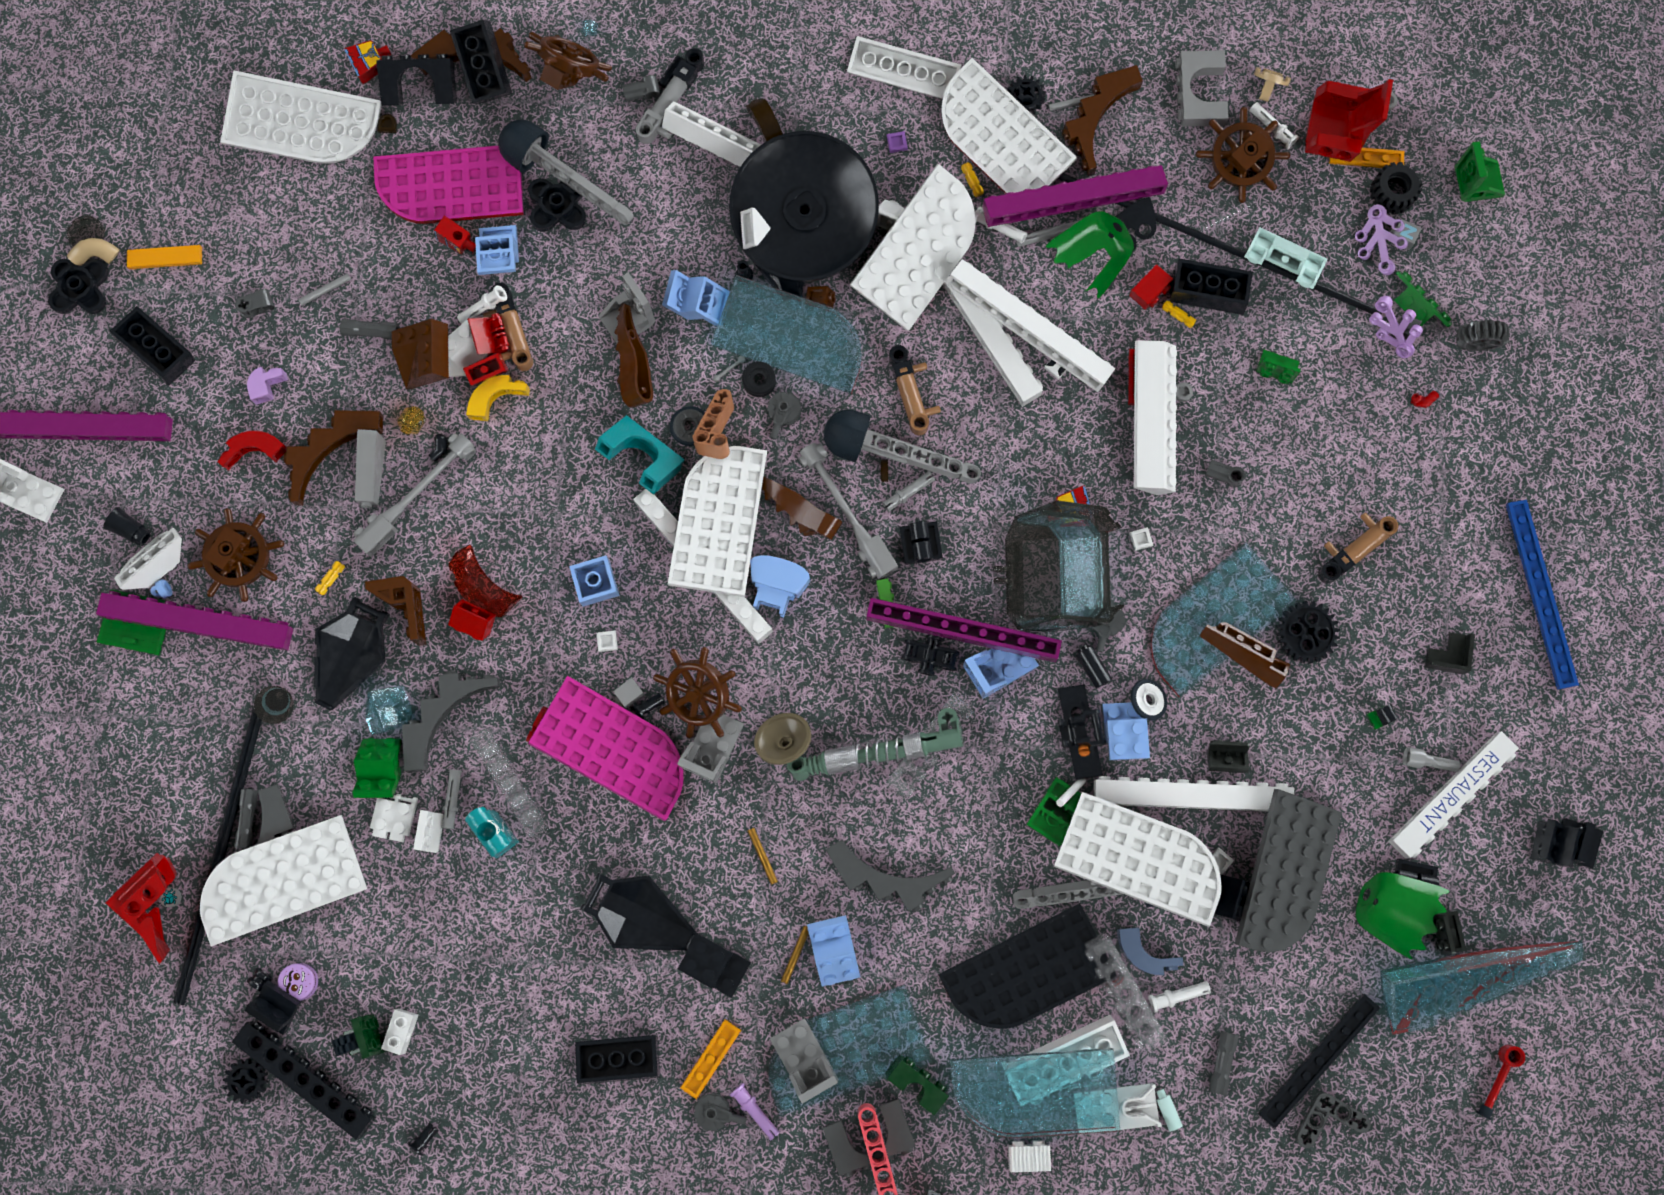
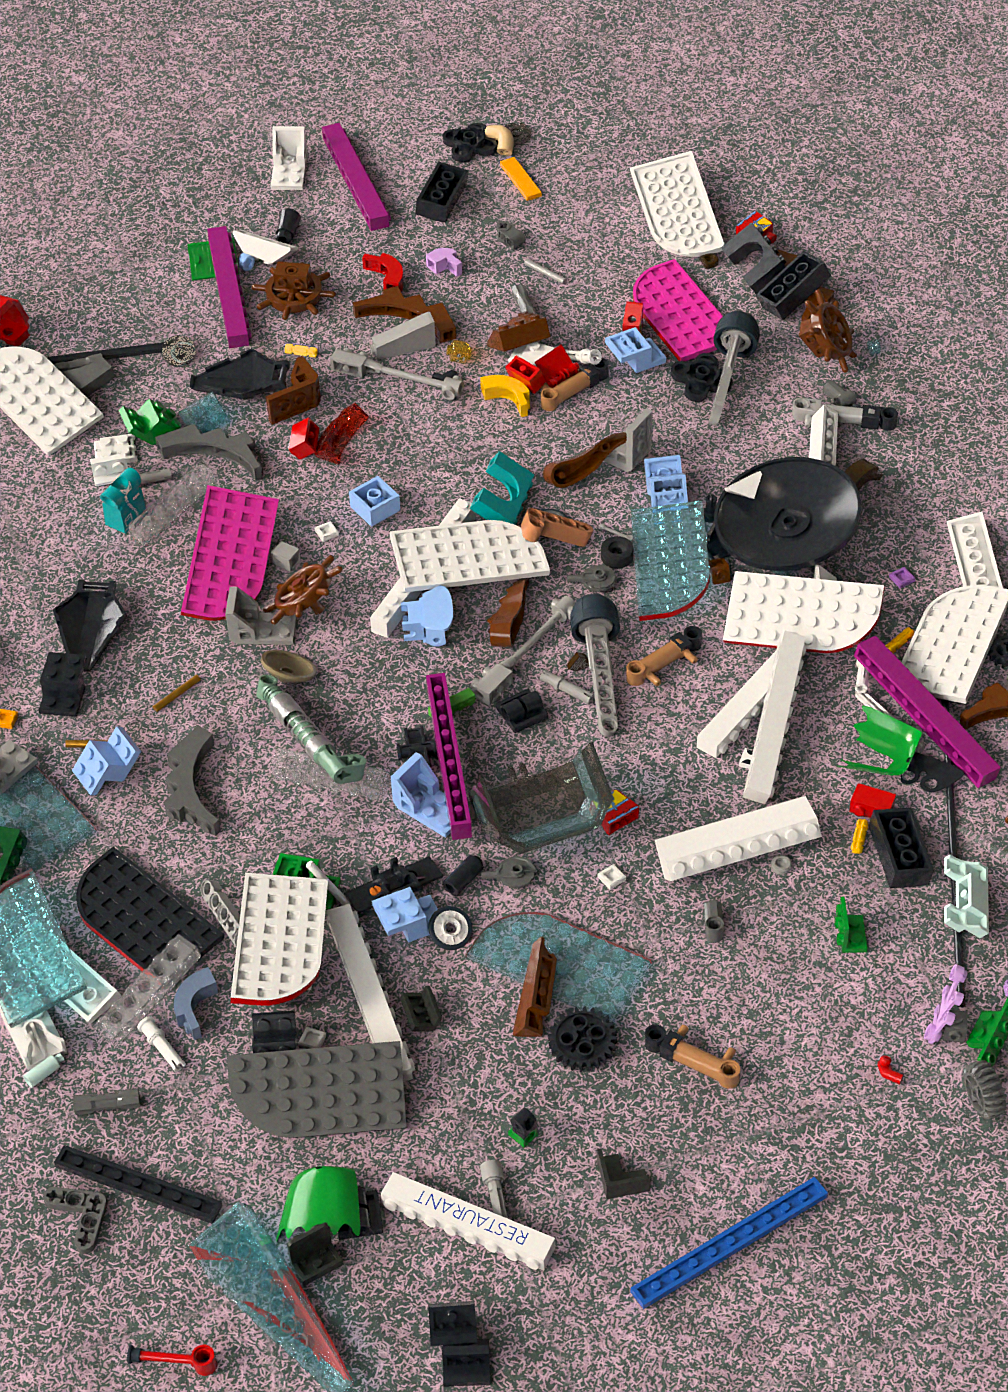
camera: 65 degrees right, 30 degrees down
(648, 705) = (278, 571): black pin -> none

